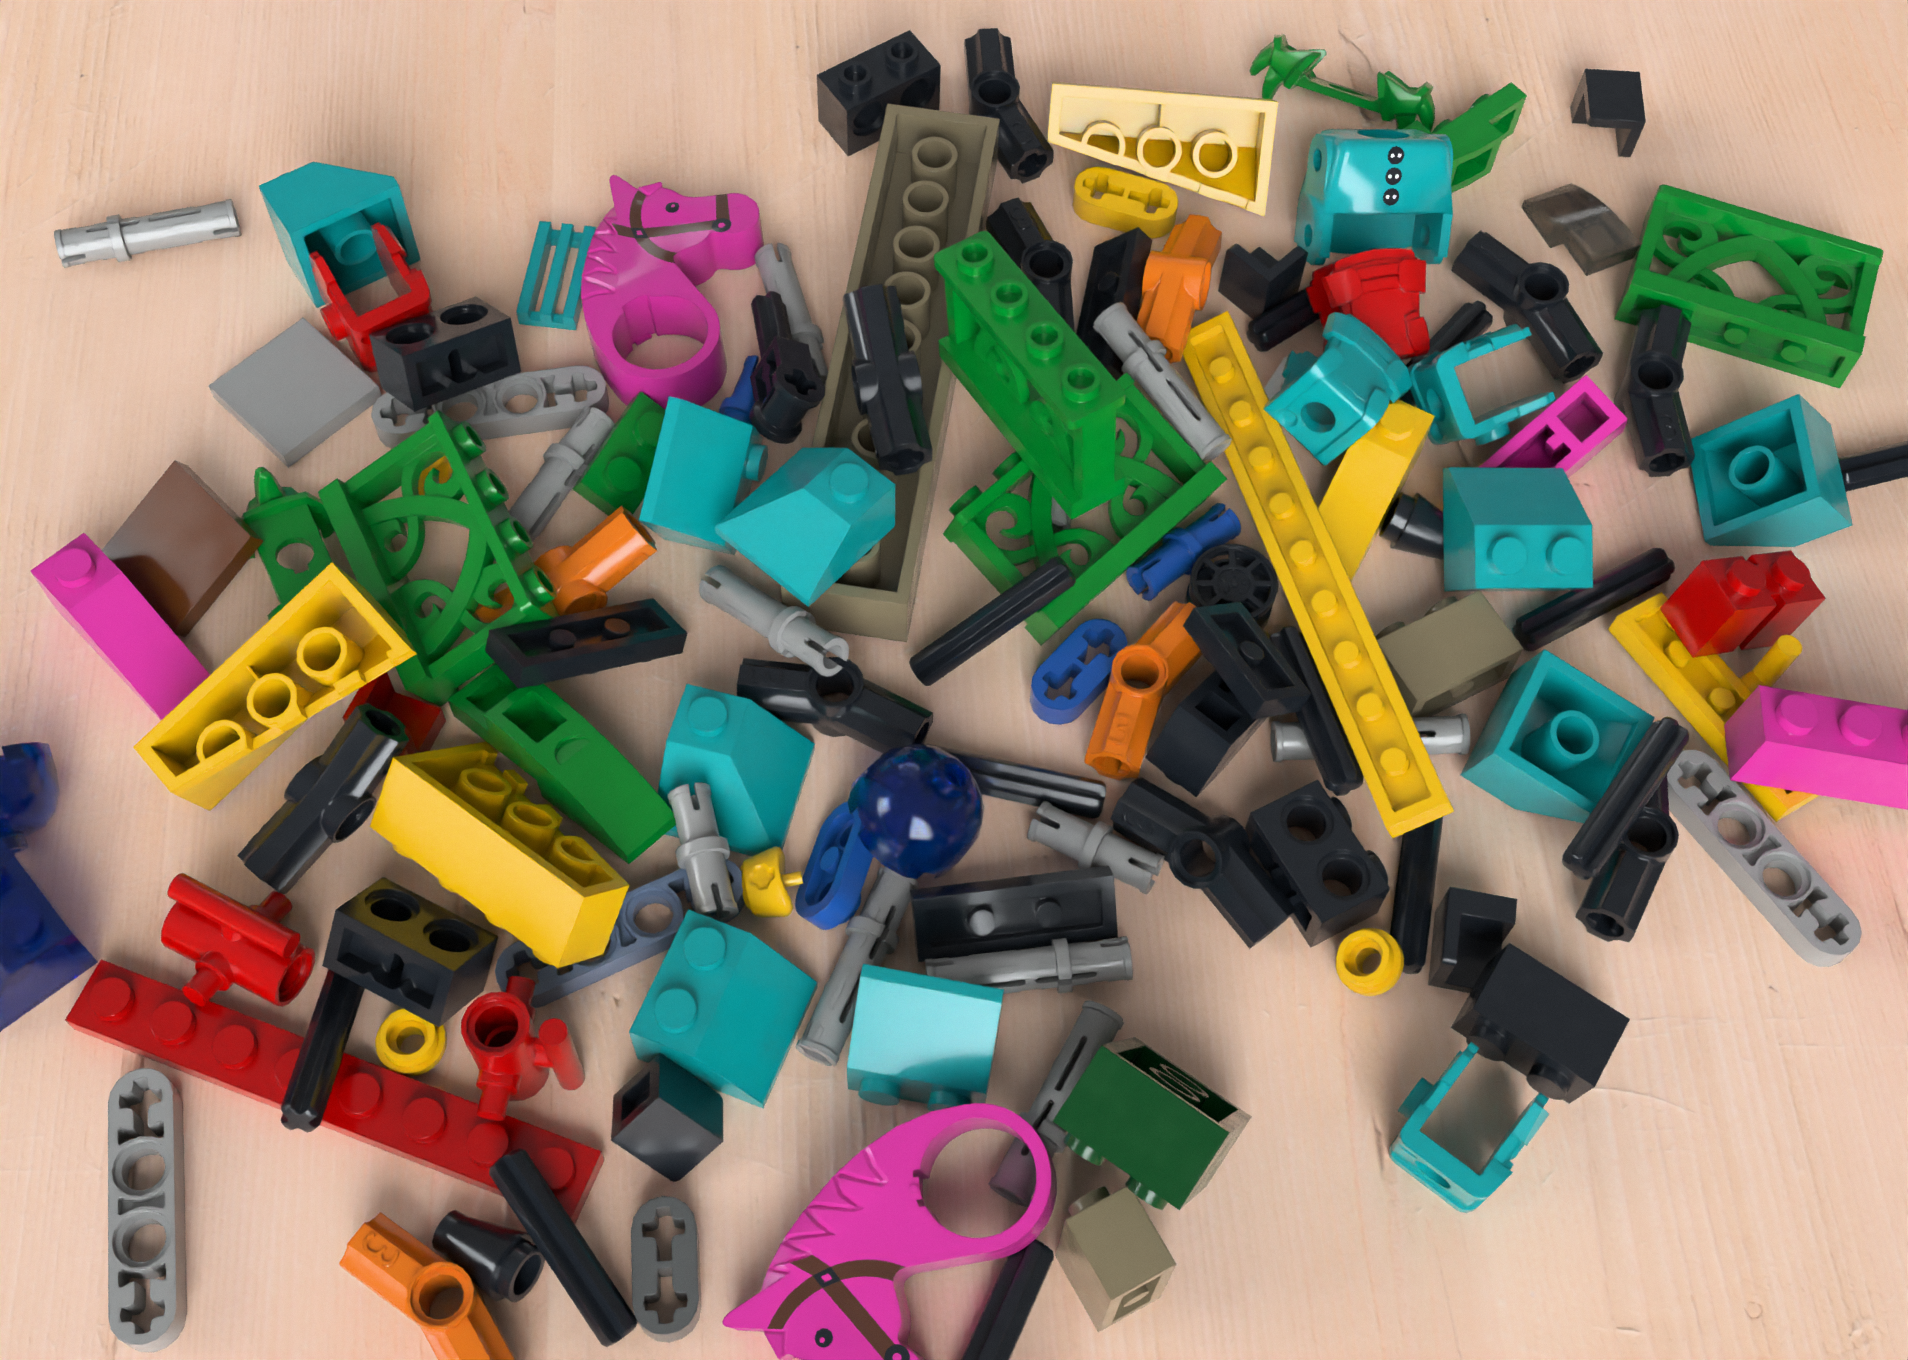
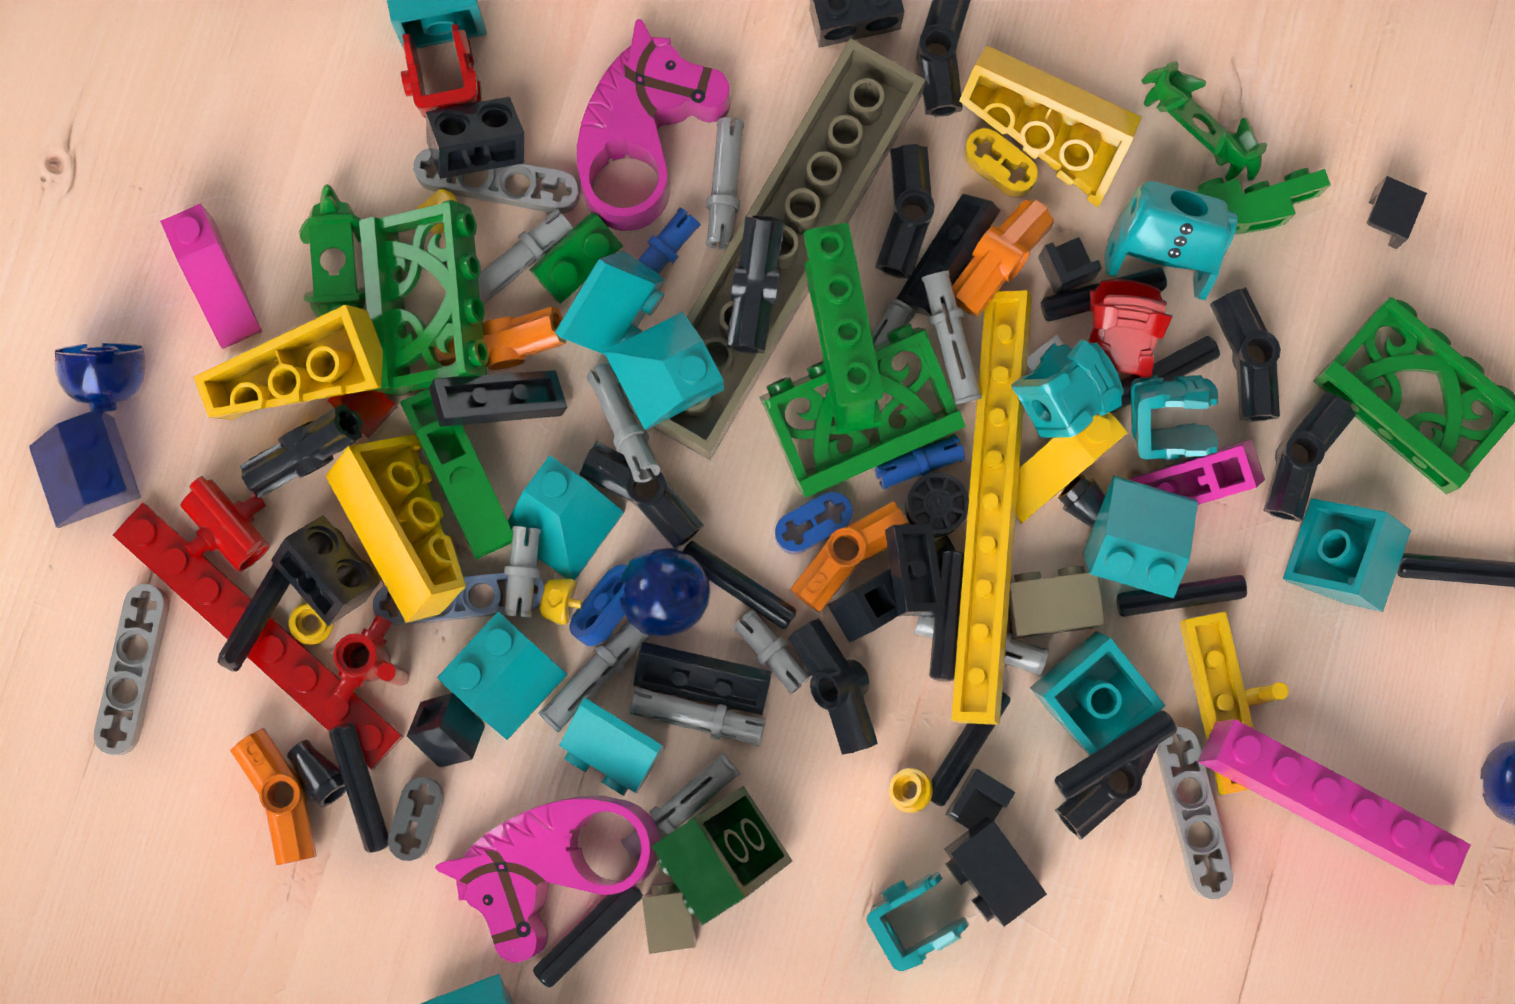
camera: 20 degrees right, 20 degrees up
(182, 547) = (261, 226): reddish brown tile -> none
(295, 392) = (370, 120): light grey tile -> none
(564, 241) = (591, 54): teal tile -> none
(784, 377) = (694, 241): black connector -> none
(992, 621) = (765, 476): black axle -> none
(1302, 865) = (894, 715): black brick -> none
(1583, 225) = (1322, 301): clear smoke slope -> none
(1741, 602) = (1270, 644): red piece -> none

